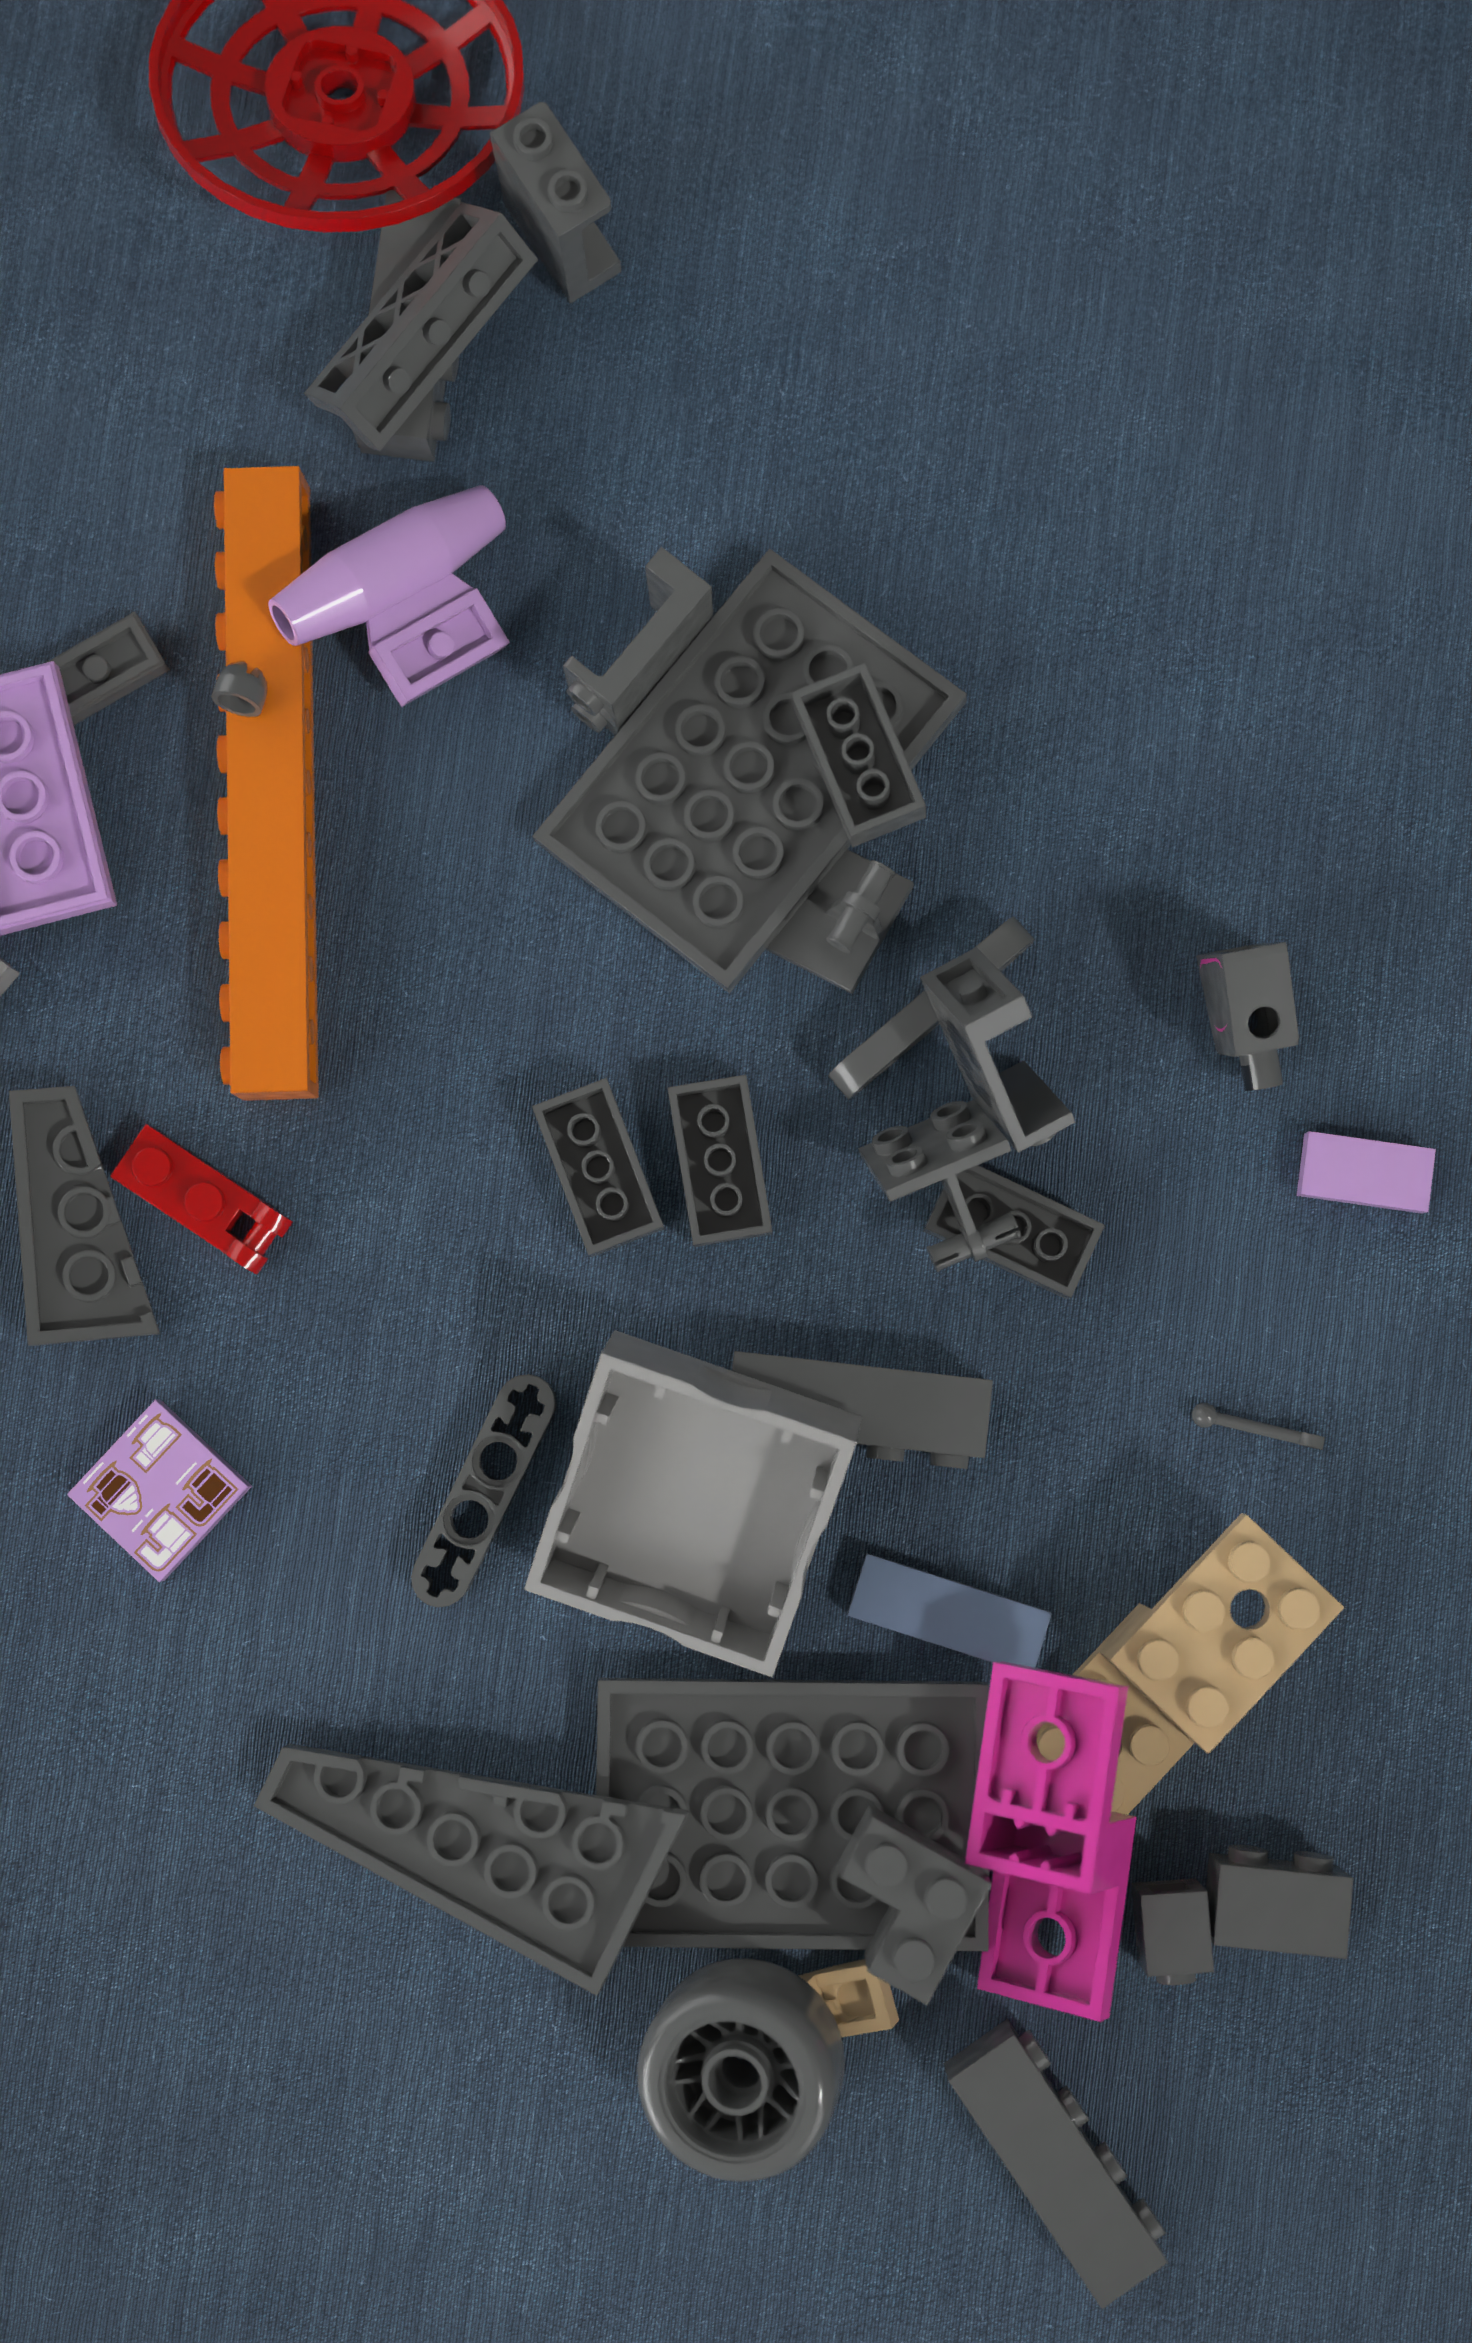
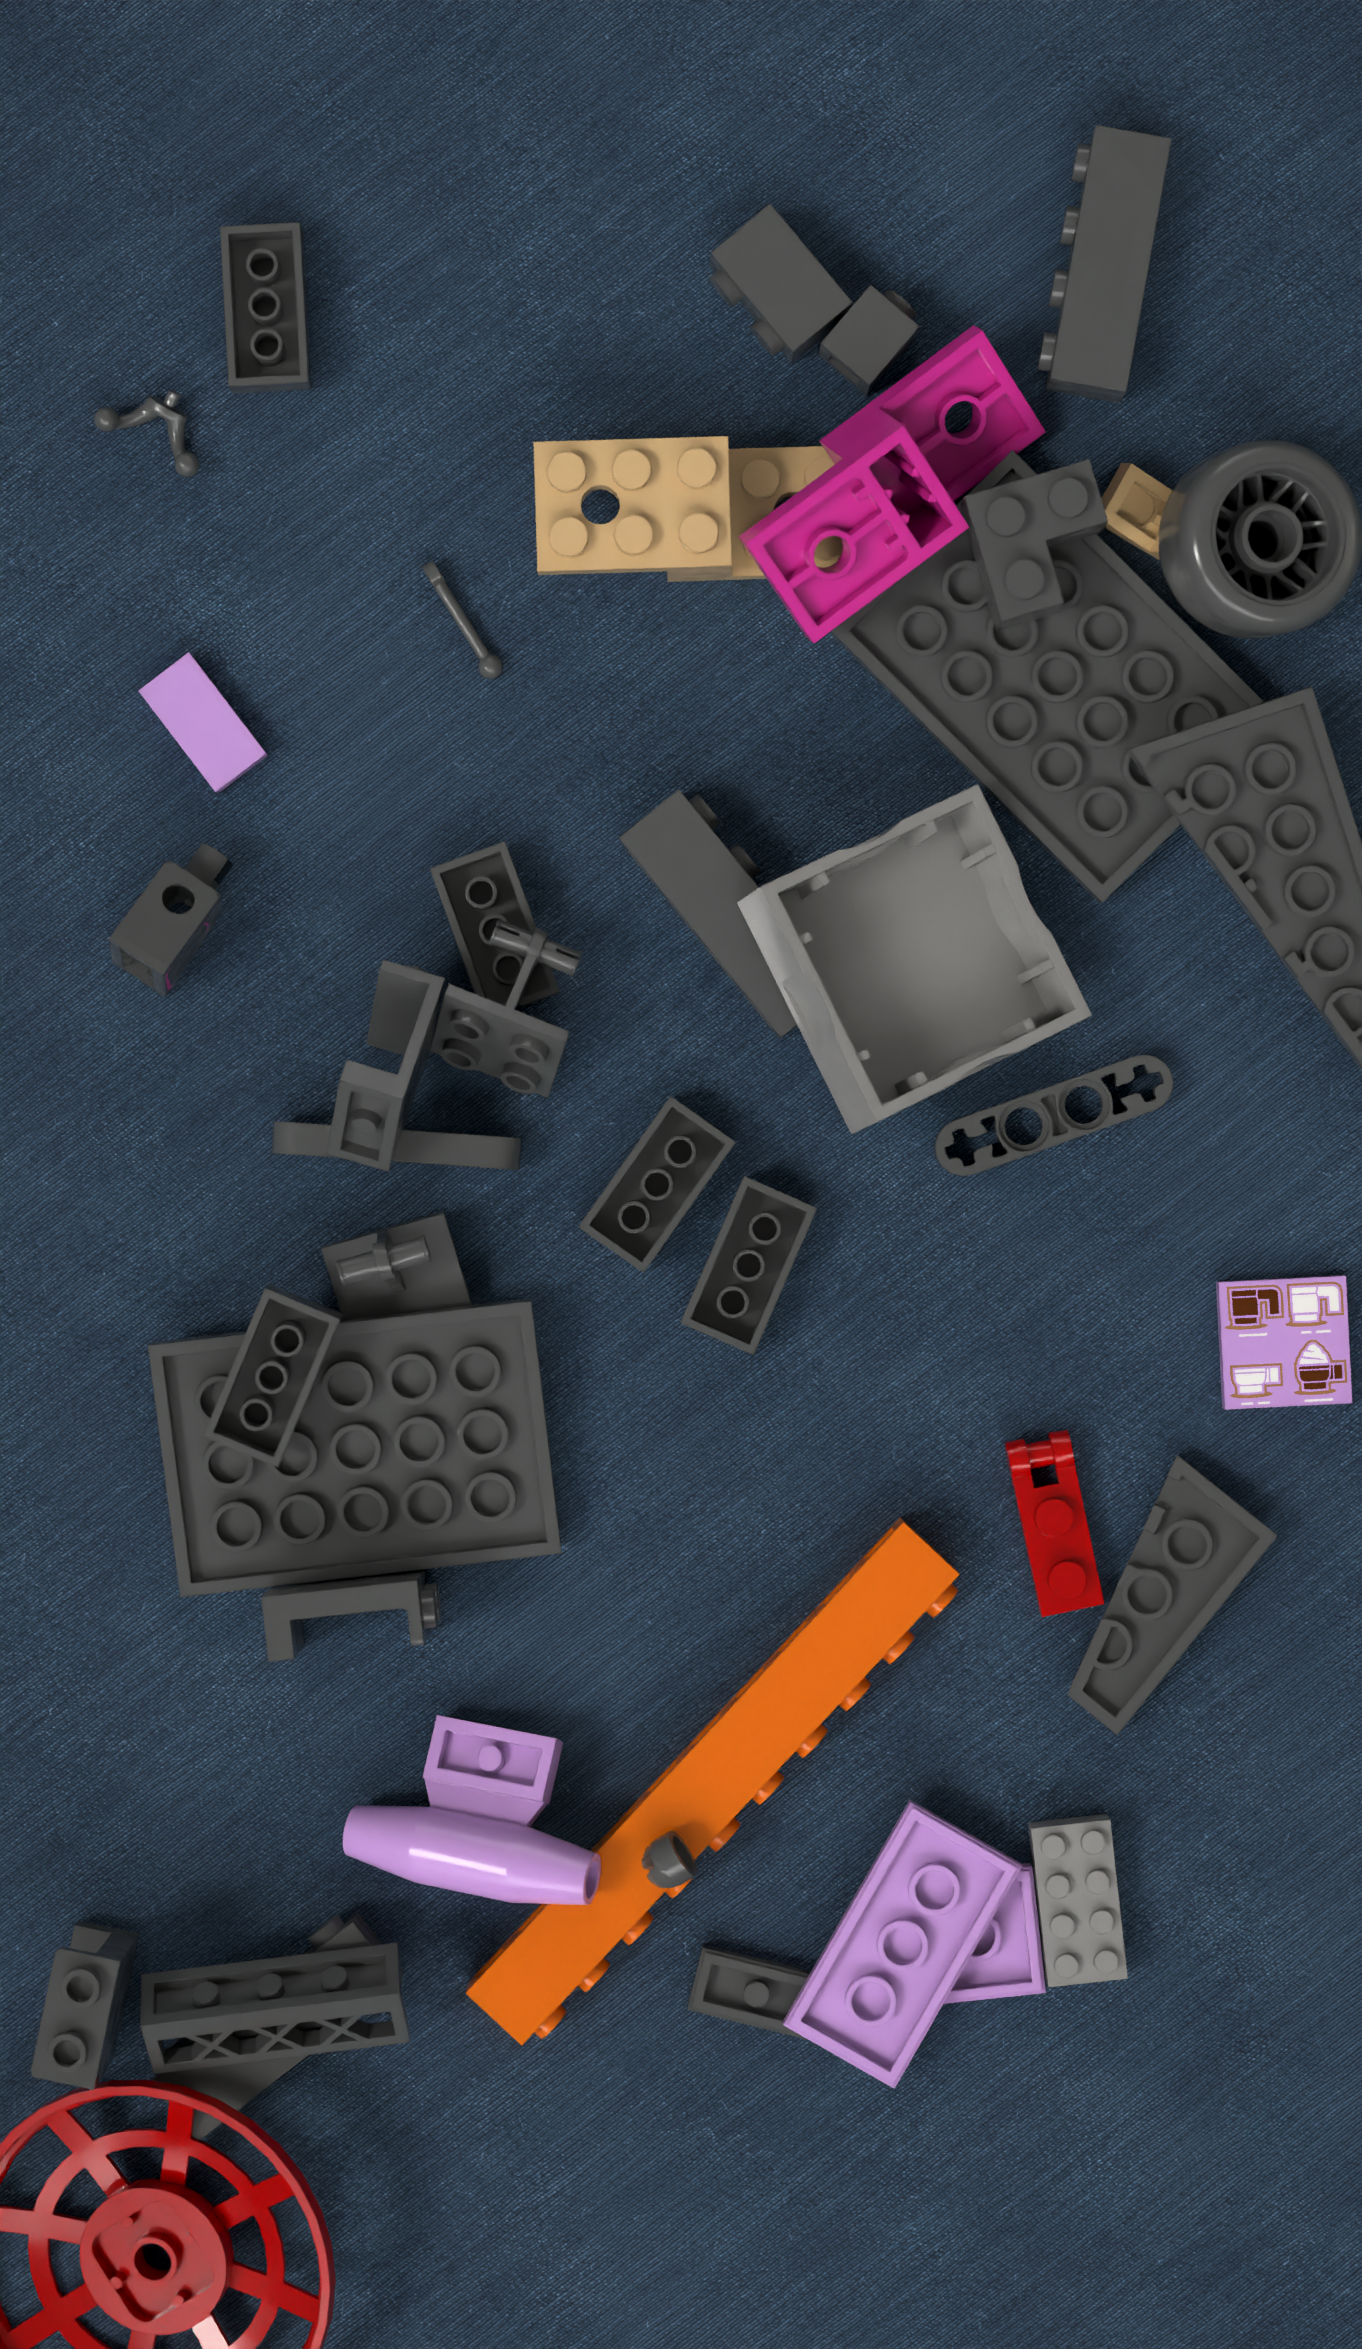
camera: 145 degrees left, 5 degrees up
(948, 1612) = (810, 707): sand blue tile -> none

